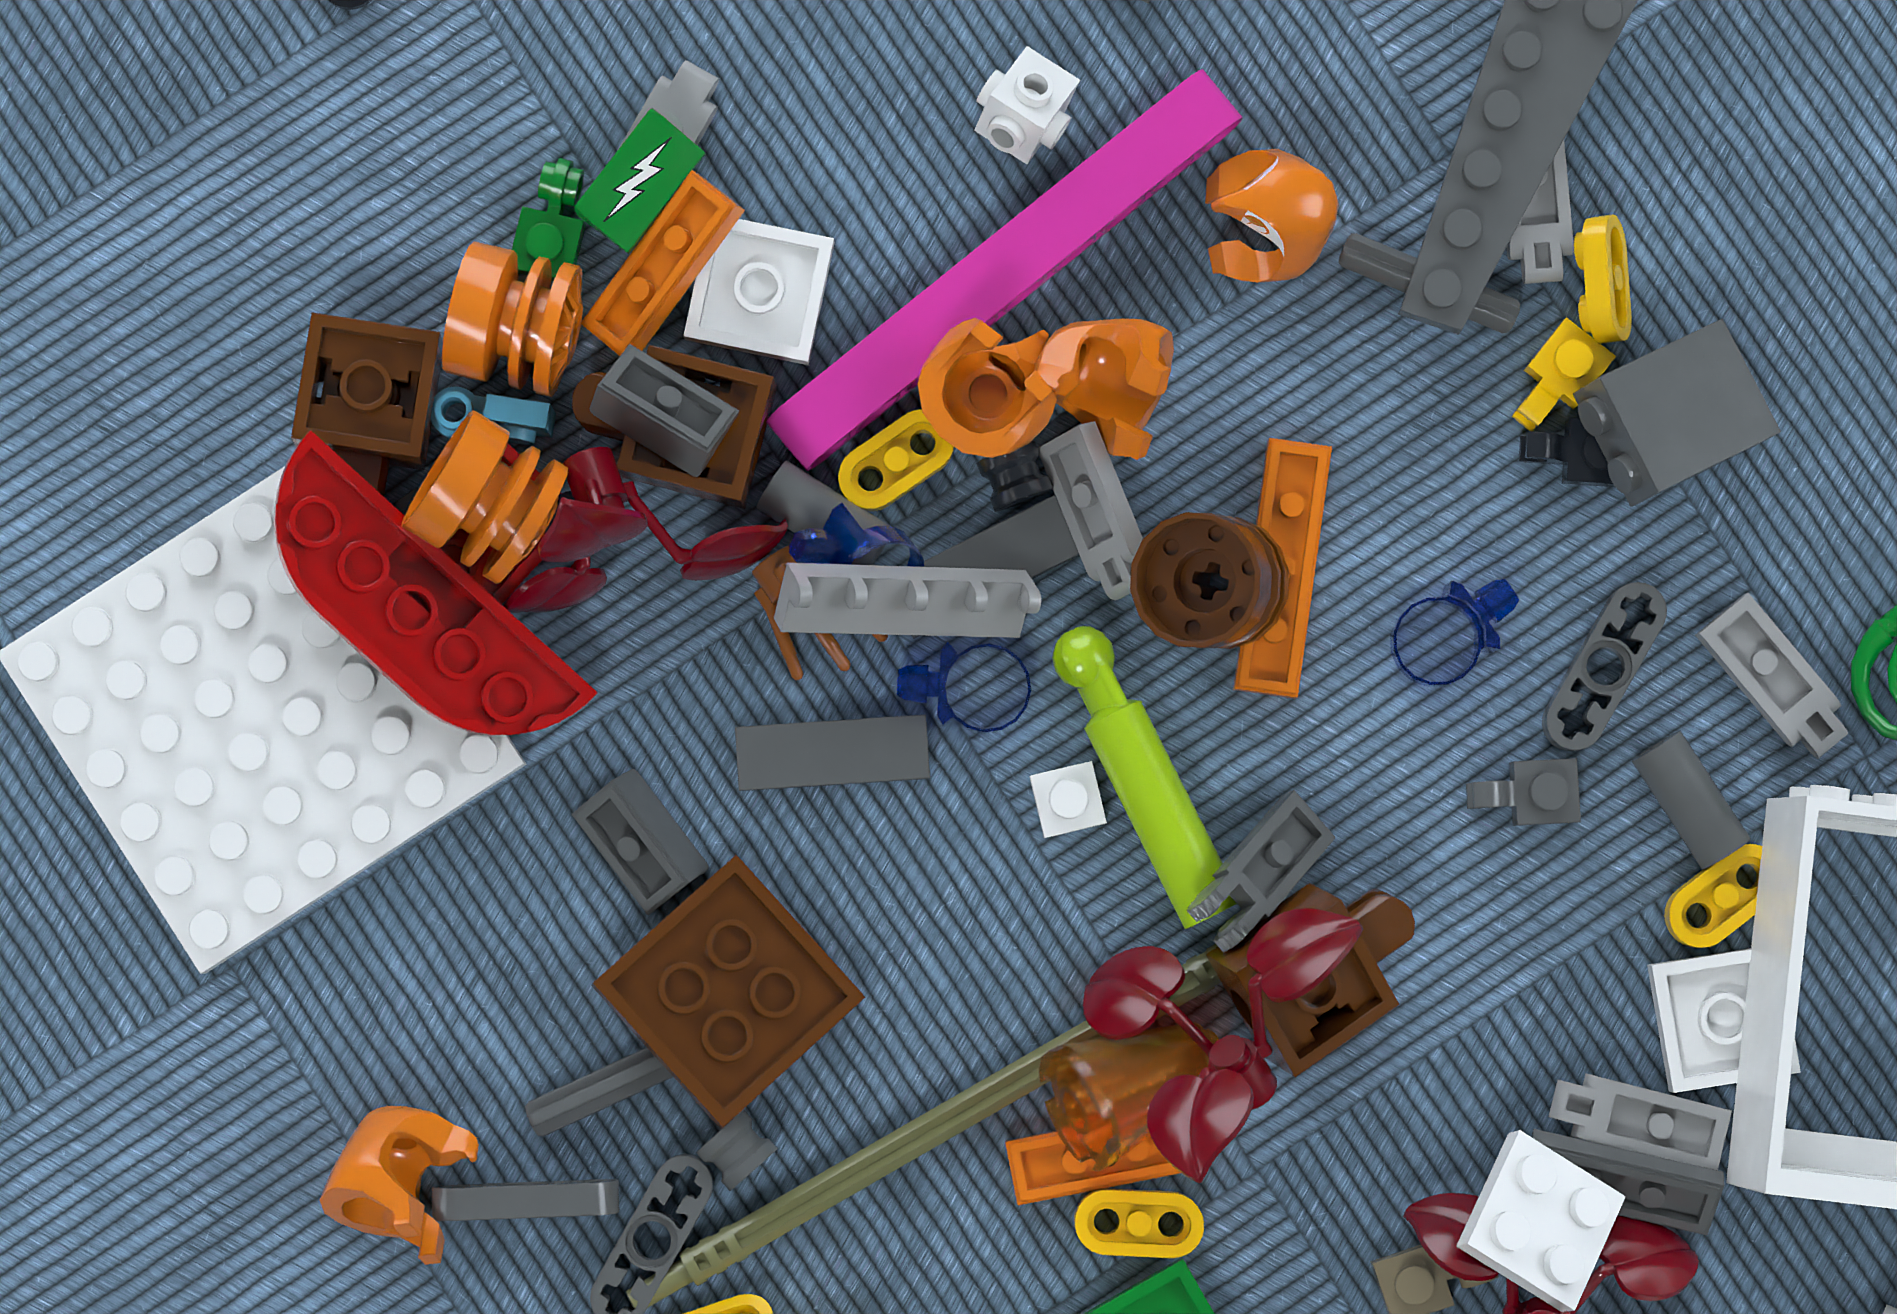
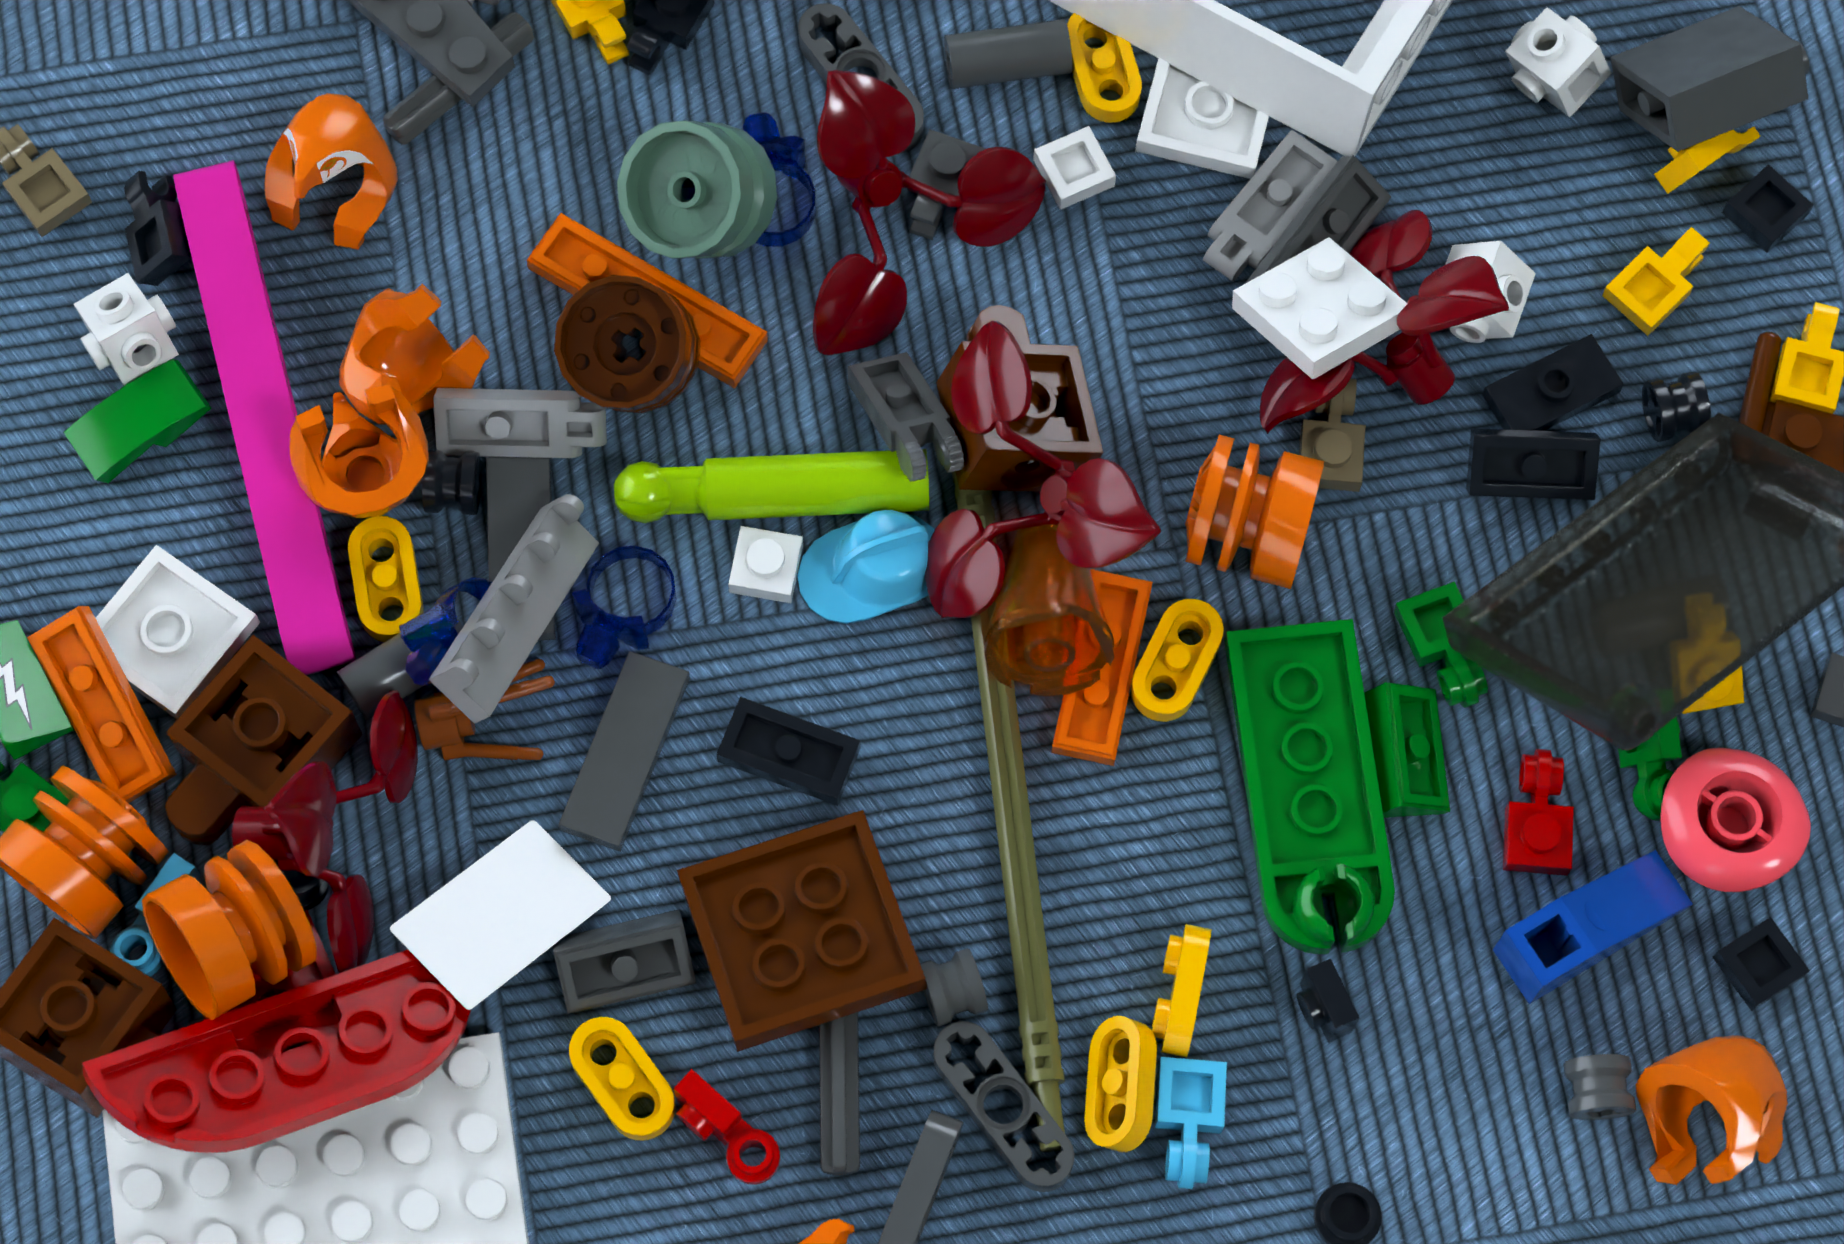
camera: 70 degrees left, 15 degrees down
(529, 983) = (710, 1113): none -> red plate
(531, 892) = (623, 1080): none -> yellow plate
(627, 715) = (500, 914): none -> white sticker
(662, 410) = (234, 742): dark grey slope -> none
(894, 903) = (788, 751): none -> black plate
(949, 157) = (134, 418): none -> green slope
(1108, 894) = (866, 567): none -> medium azure piece
(1142, 80) = (158, 233): none -> black plate
(1307, 1241) = (1253, 511): none -> orange wheel
(1397, 572) = (696, 190): none -> sand green wheel
(1503, 720) = (856, 132): none -> dark red plant
(1599, 915) = (1074, 167): none -> white plate

